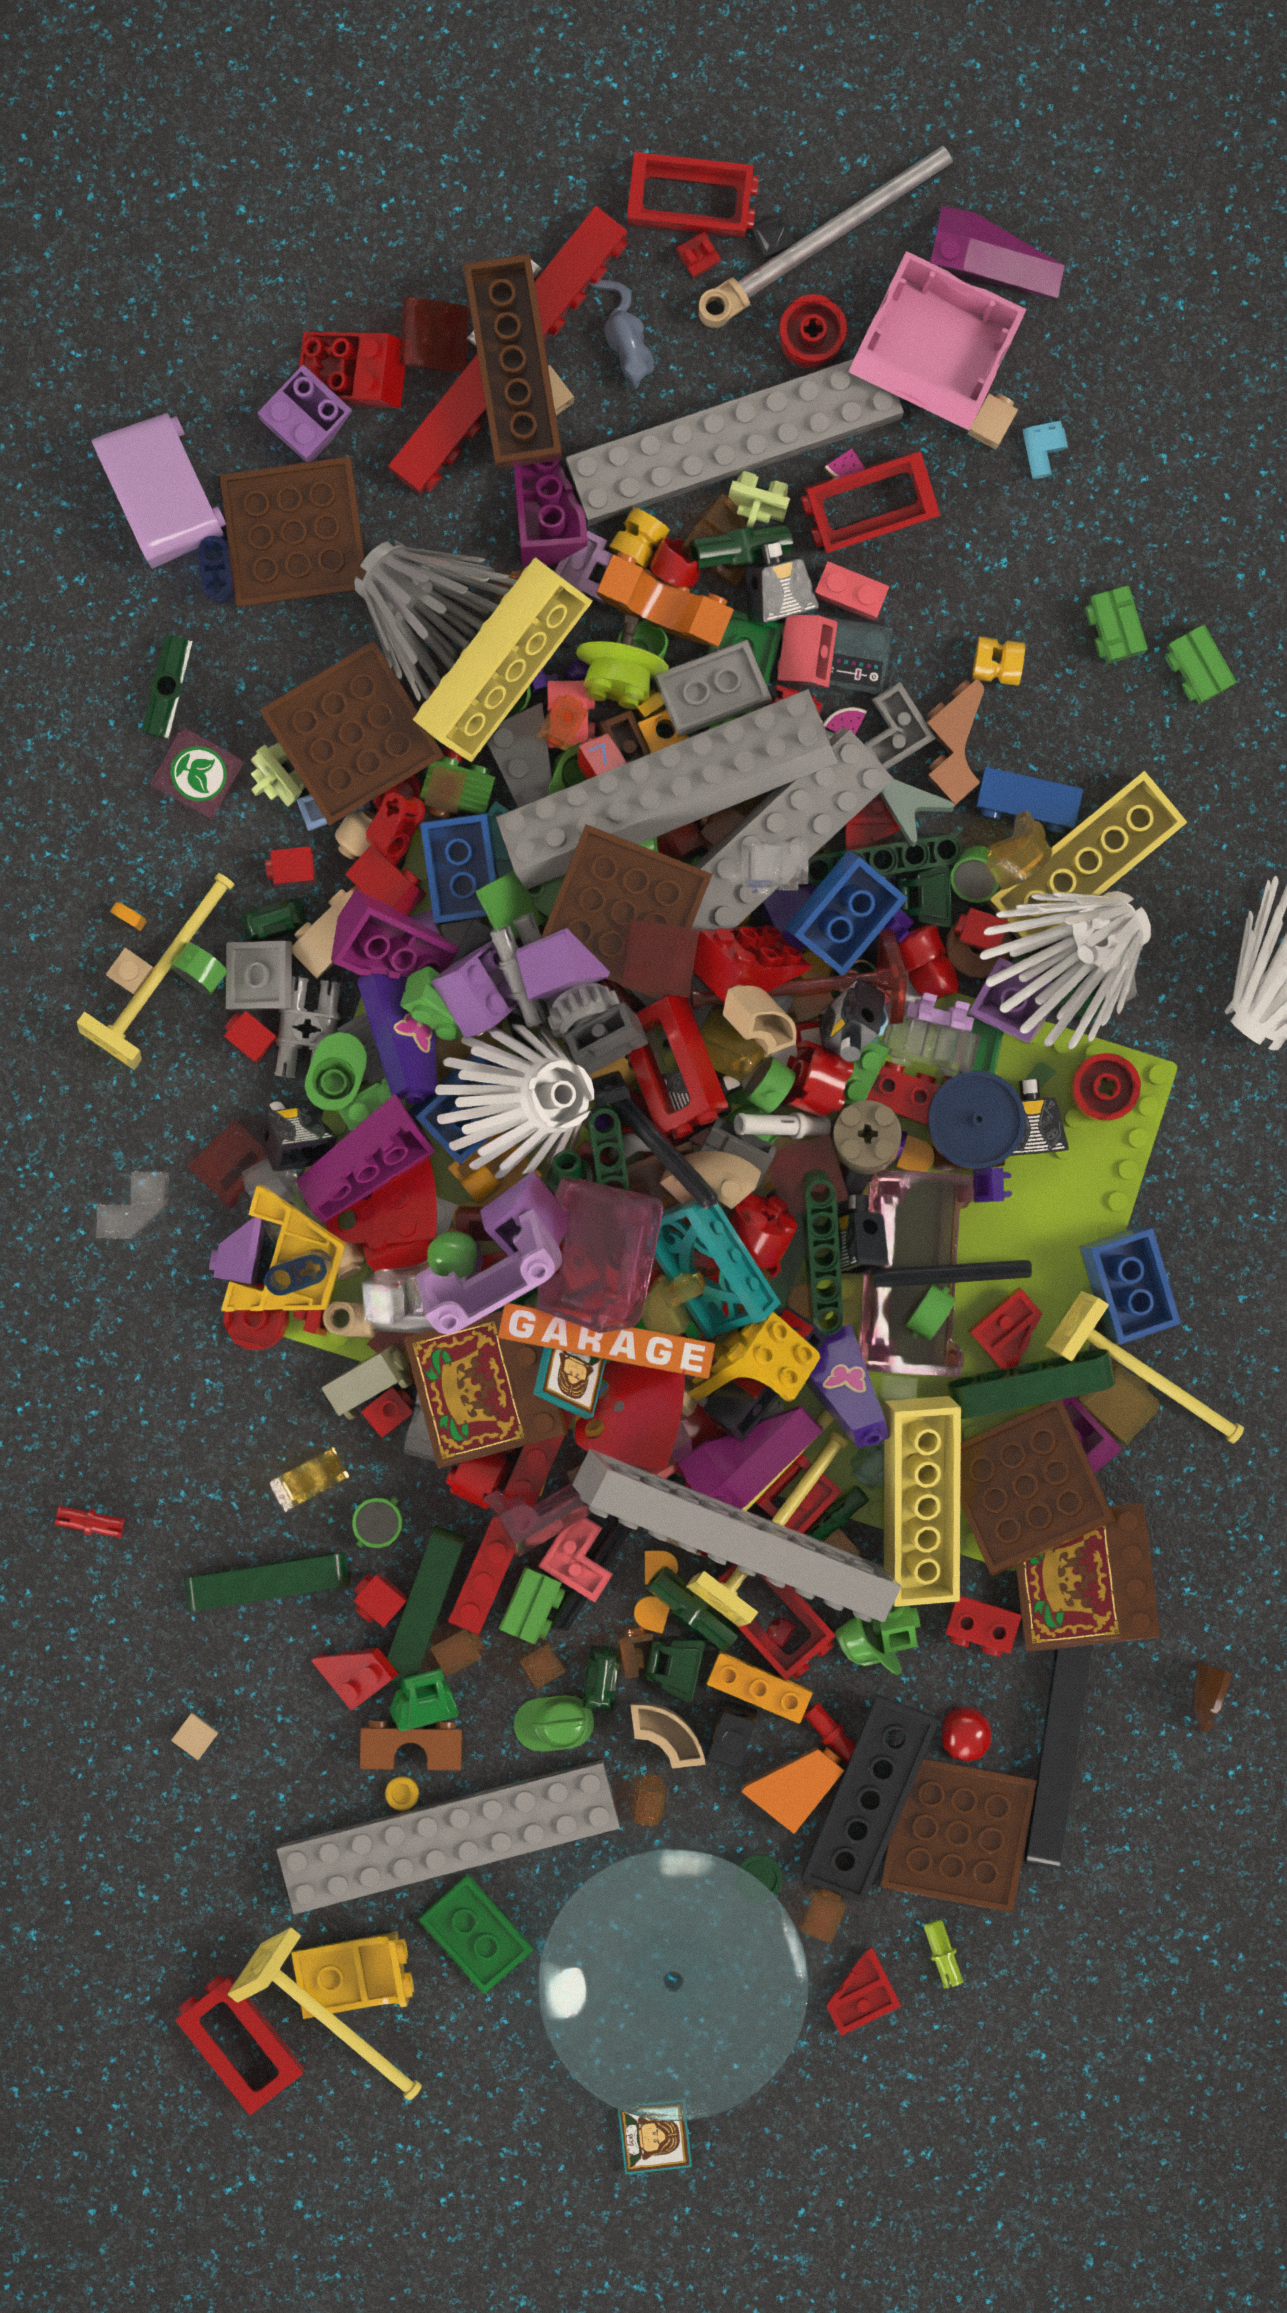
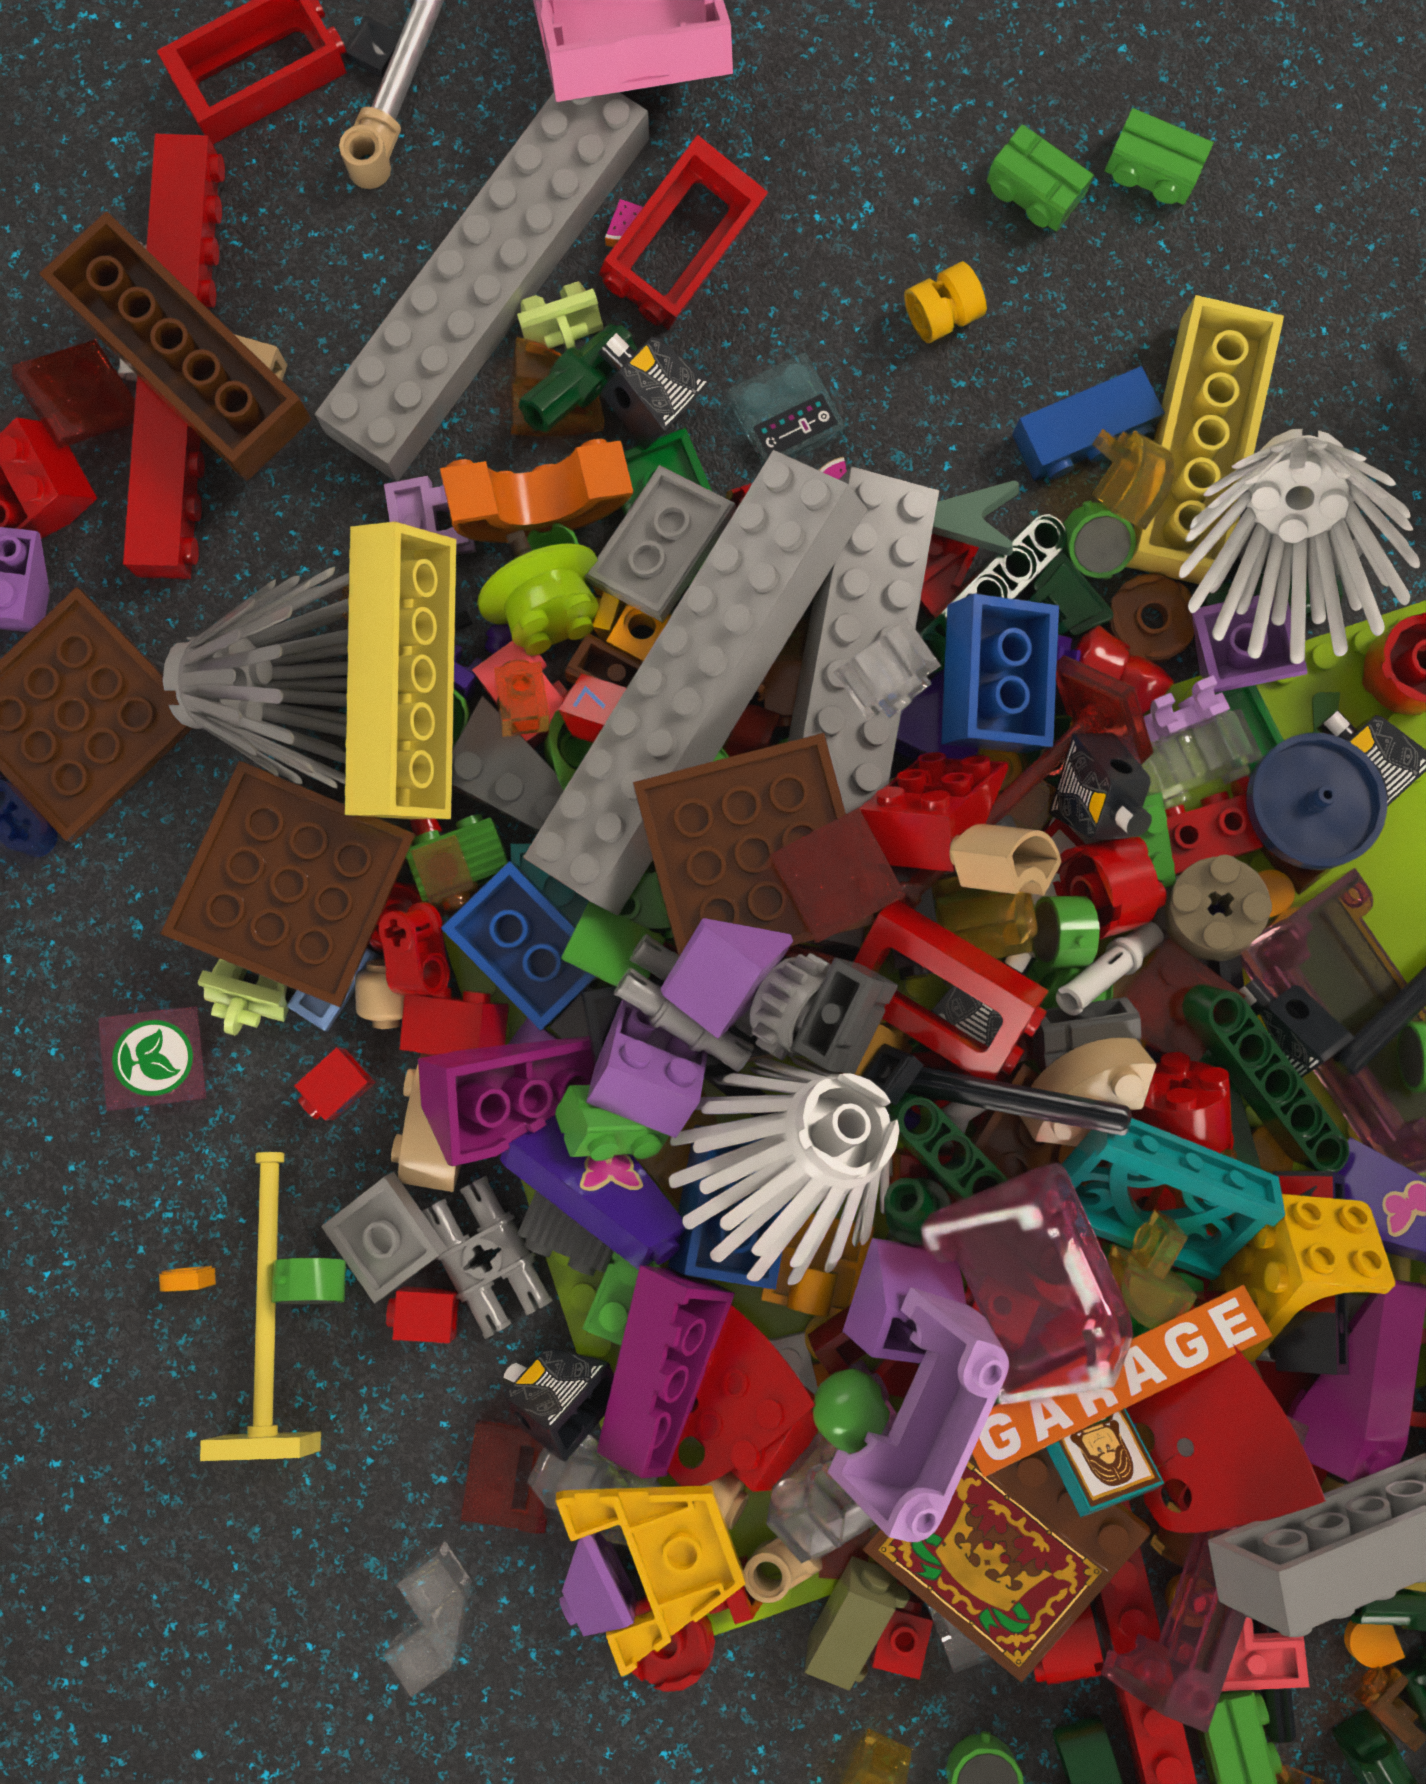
camera: 30 degrees left, 5 degrees down
(129, 971) = (228, 1343): tan brick -> none
(163, 708) = (36, 960): dark green piece -> none
(274, 920) = (357, 1159): dark green piece -> none
(293, 1265) = (670, 1570): beam -> none
(336, 1071) = (552, 1287): bright green piece -> none
(548, 514) = (336, 486): magenta wedge -> none
(626, 335) = (289, 255): sand blue animal -> none
(639, 537) = (458, 436): yellow wheel -> none
(673, 566) = (518, 446): red hair -> none
(698, 255) = (308, 118): red tile -> none
(807, 651) = (729, 434): coral brick -> none
(828, 321) = (486, 102): red brick -> none
(851, 591) = (734, 341): coral brick -> none
(906, 727) = (894, 437): light grey brick -> none
(951, 728) = (951, 412): nougat arch -> none
(972, 928) = (1152, 593): red brick -> none
(989, 1185) = (1379, 866): dark purple tile -> none
(993, 420) = (752, 67): tan brick -> none
(1041, 441) = (813, 56): medium azure piece -> none

